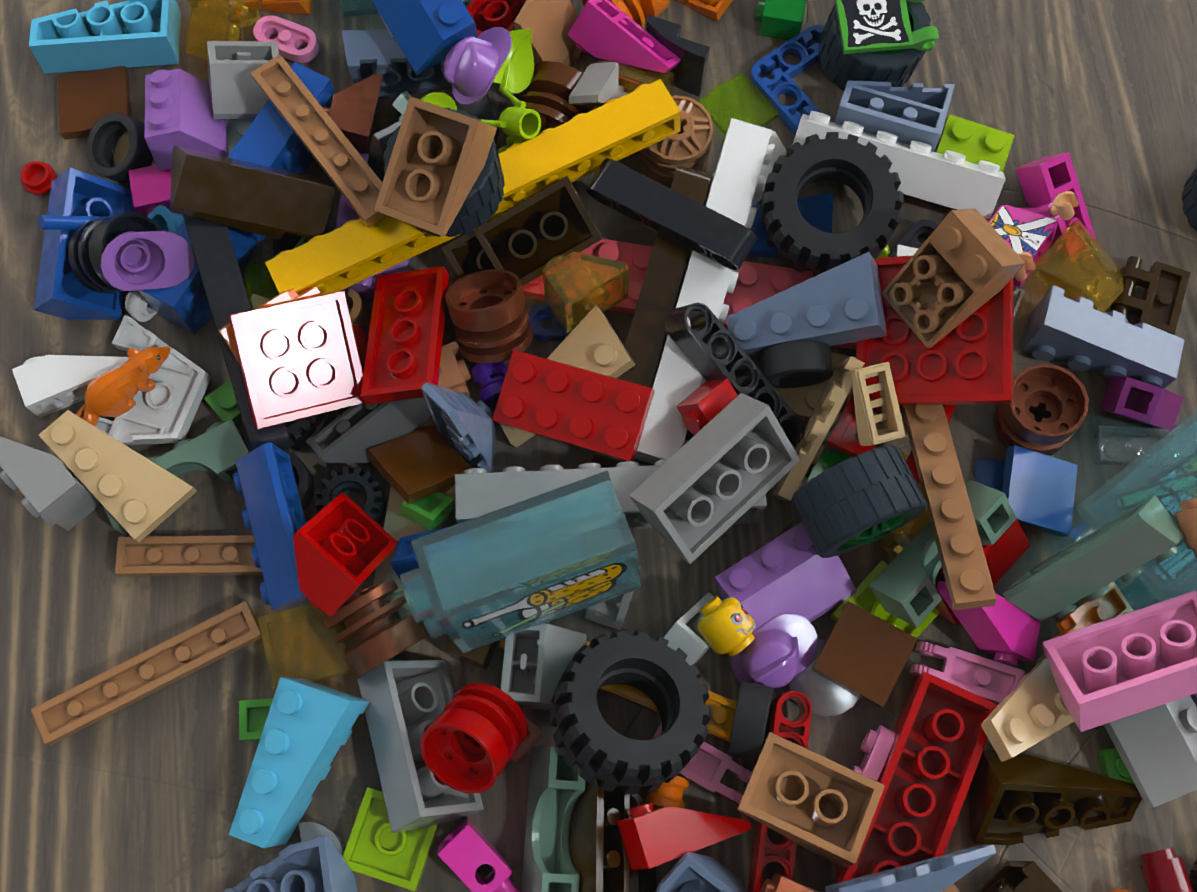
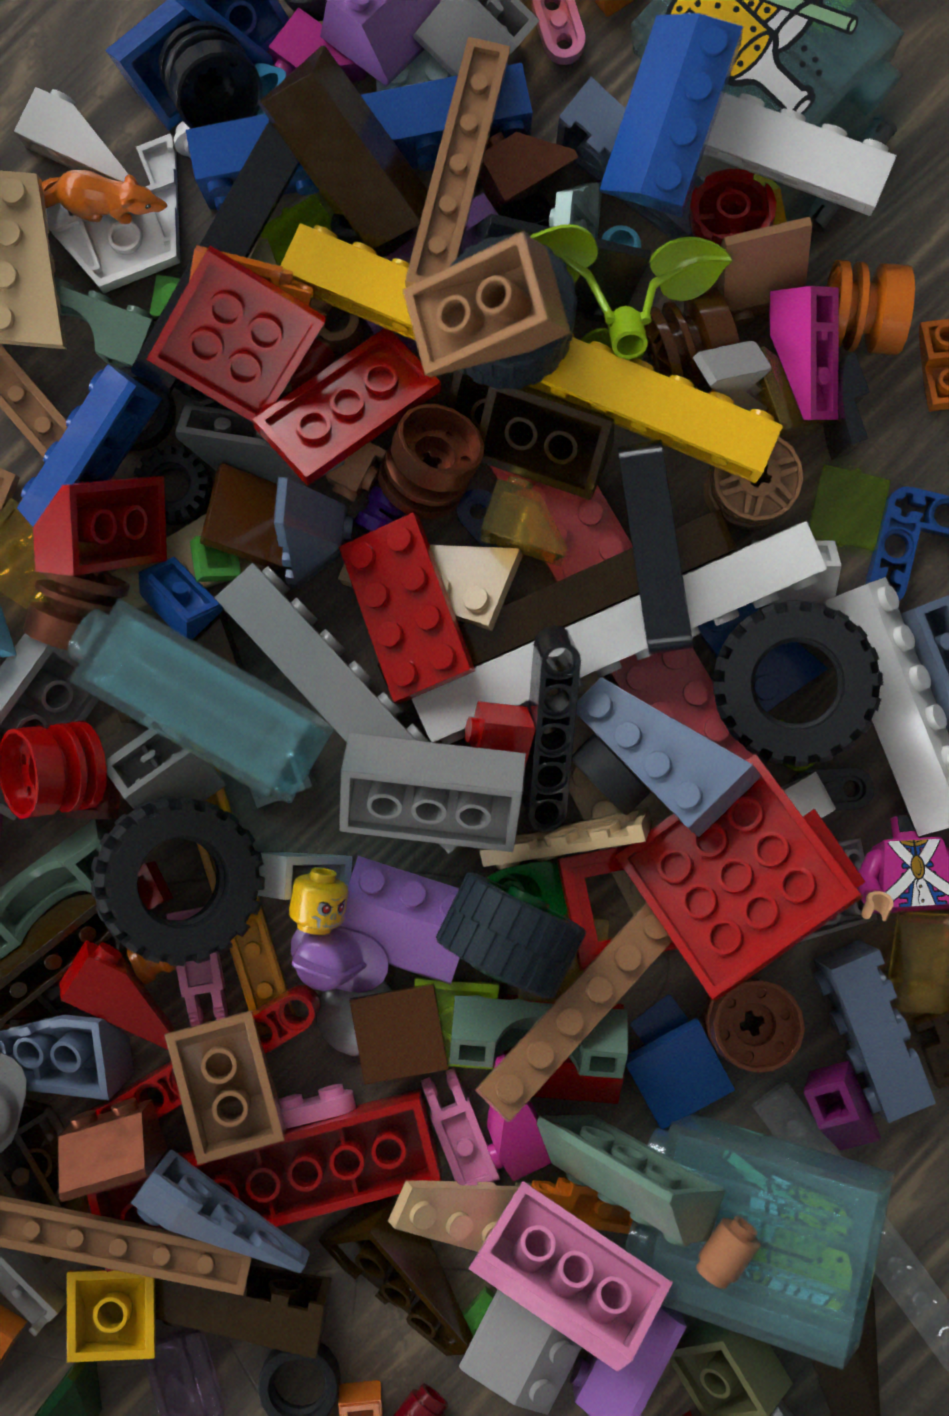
camera: 55 degrees right, 15 degrees up
(147, 260) = (206, 116): medium lavender piece -> none
(475, 62) = (651, 241): medium lavender piece -> none
(750, 721) = (256, 984): black tyre -> none
(890, 415) = (612, 909): tan slope -> none
(952, 275) = (792, 858): medium nougat slope -> none

